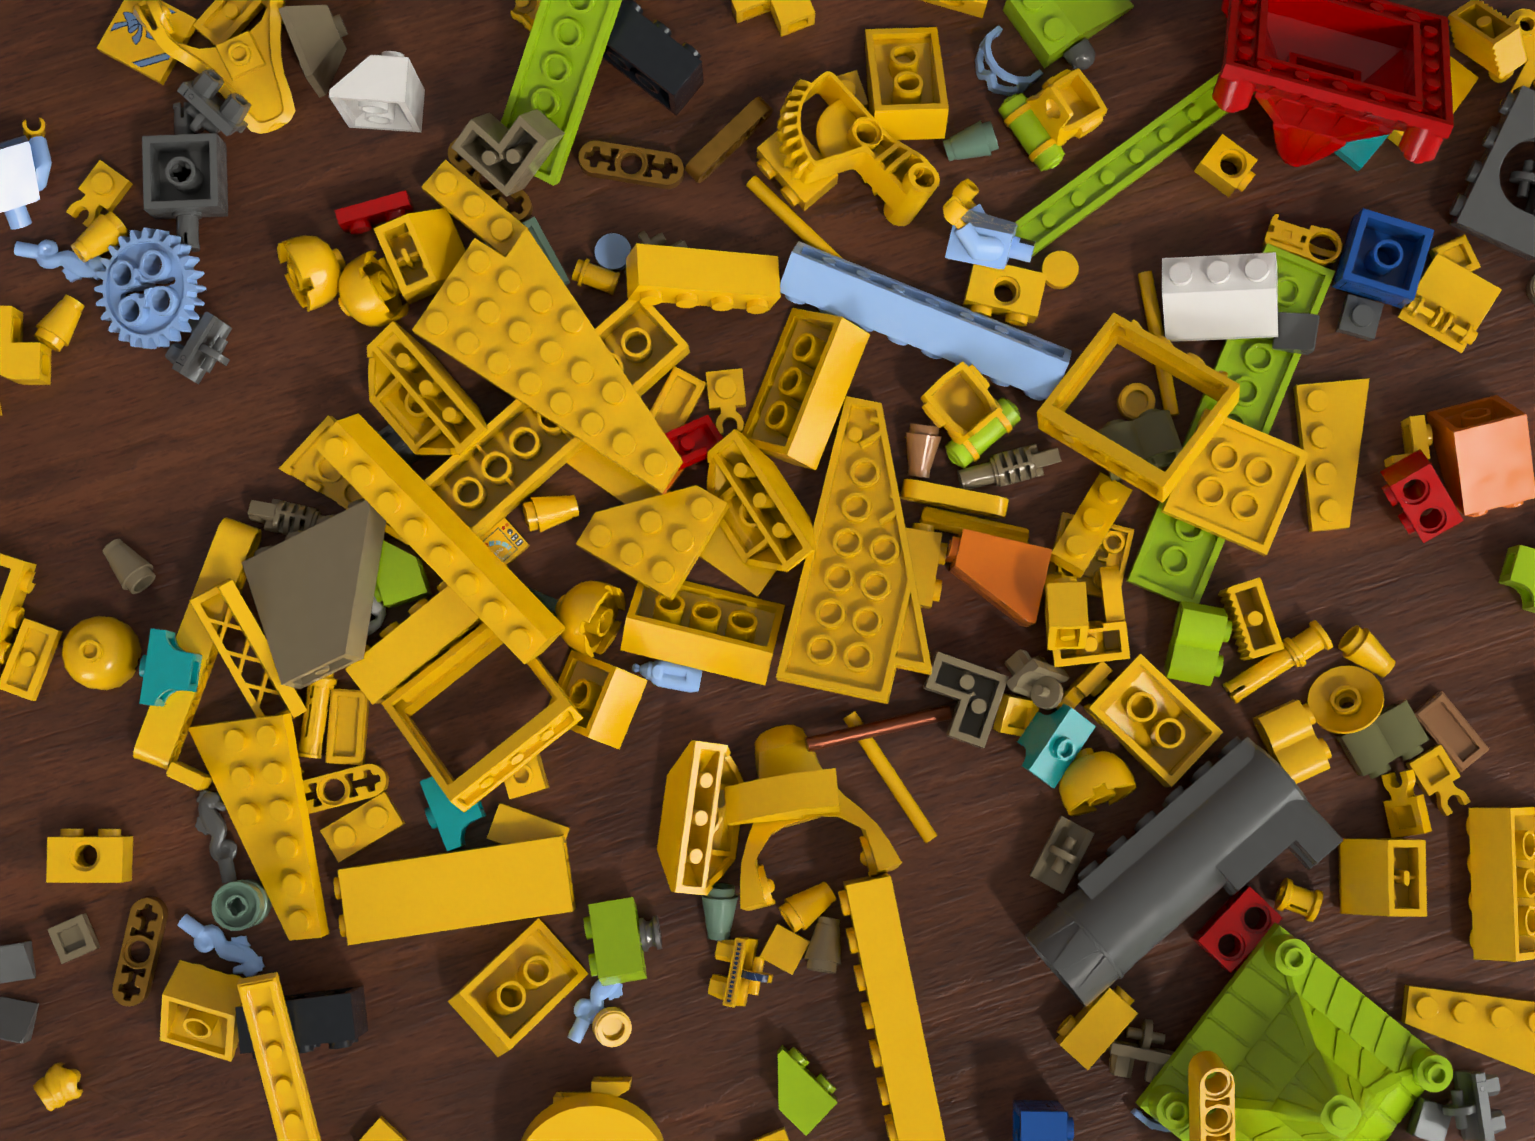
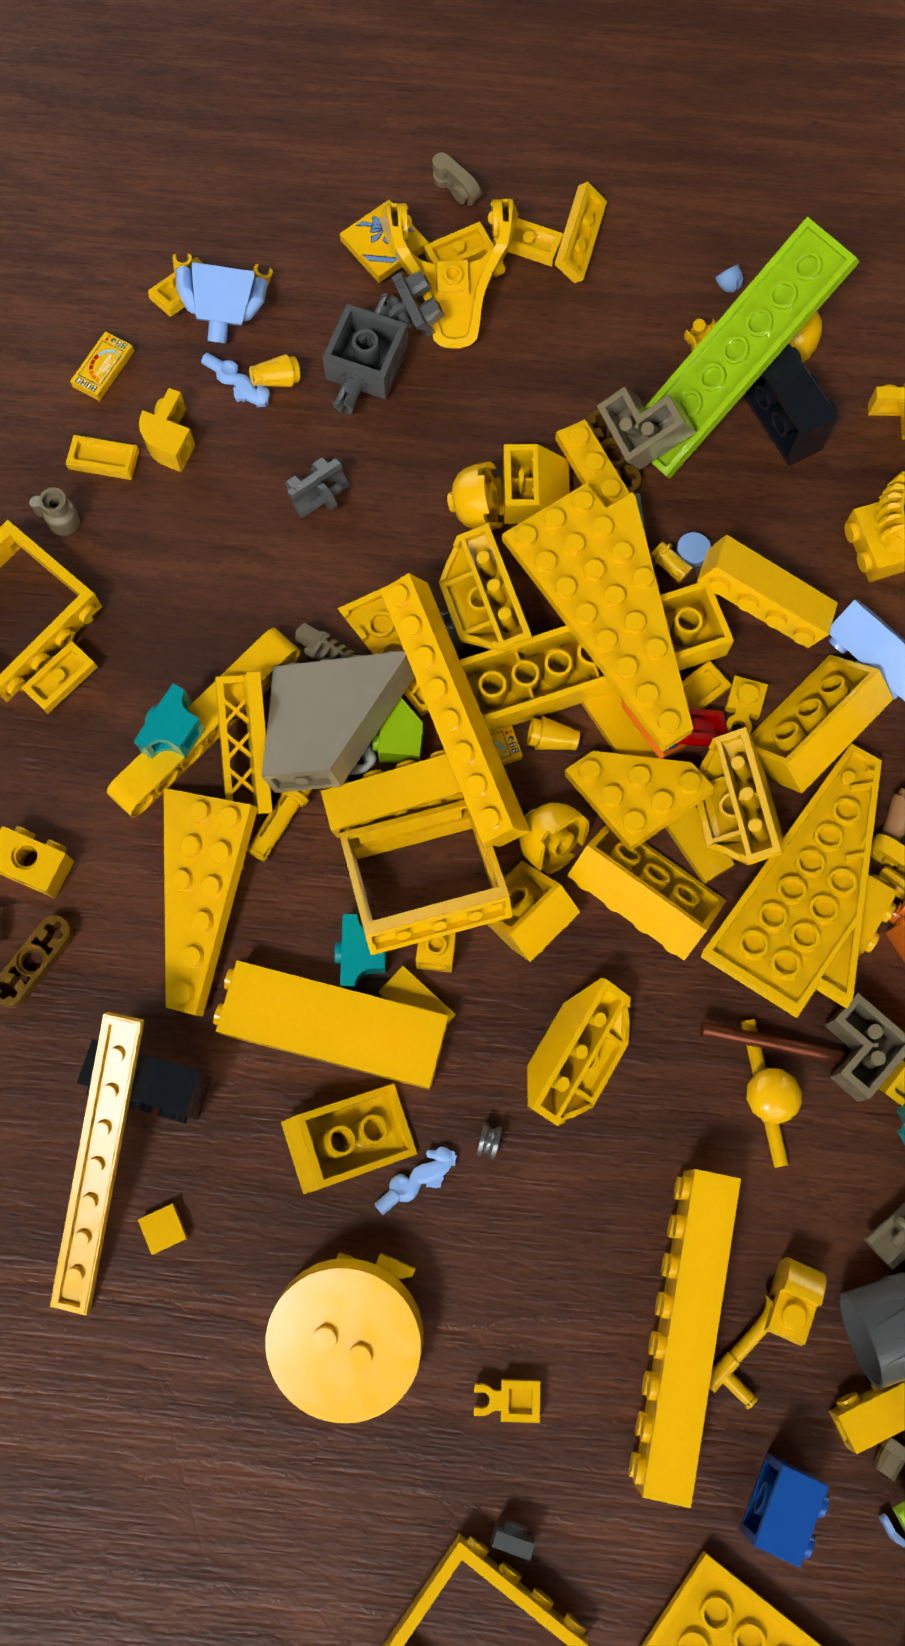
camera: 25 degrees right, 10 degrees down
(59, 324) = (212, 425): yellow cone -> none
(101, 652) = (120, 696): yellow cylinder -> none
(102, 190) = (293, 339): yellow plate -> none
(129, 567) = (177, 636): dark tan cone -> none
(142, 258) = (298, 424): light blue gear -> none
(189, 776) = (146, 828): yellow tile -> none
(201, 1010) = (59, 1035): yellow slope -> none
(212, 823) = (146, 877): dark grey animal -> none
(236, 950) = (99, 975): light blue animal -> none
(241, 904) = (138, 956): sand green wheel -> none
(311, 269) = (437, 461): yellow cylinder -> none
(316, 41) = (518, 292): dark tan slope -> none
(347, 727) = (299, 845): yellow tile -> none
(361, 216) = (492, 437): red plate -> none
(362, 827) = (273, 936): yellow plate -> none
(363, 792) = (291, 889): yellow beam -> none
(381, 94) = (554, 344): white slope -> none
(603, 168) = (740, 501): pearl gold beam -> none
(611, 1026) = (418, 1212): yellow tile -> none
(616, 942) = (456, 1135): lime brick -> none
(670, 675) = (602, 919): light blue piece -> none
(719, 910) = (560, 1147): sand green cone -> none
(728, 139) = (828, 498): pearl gold beam -> none
(744, 972) = (562, 1214): yellow hips -> none
(781, 753) = (675, 1069): yellow animal -> none
(782, 797) = (665, 1065): yellow slope -> none
(784, 949) = (606, 1209): yellow tile -> none
(788, 216) = (852, 574): yellow bar -> none
(801, 1094) = (567, 1353): lime slope -> none
(806, 906) = (641, 1178): yellow cone -> none
(824, 947) = (645, 1223): dark tan cone -> none
(898, 778) = (774, 1095): none -> yellow hair
(946, 1047) = (723, 1371): none -> yellow piece
(984, 960) = (796, 1296): none -> yellow brick

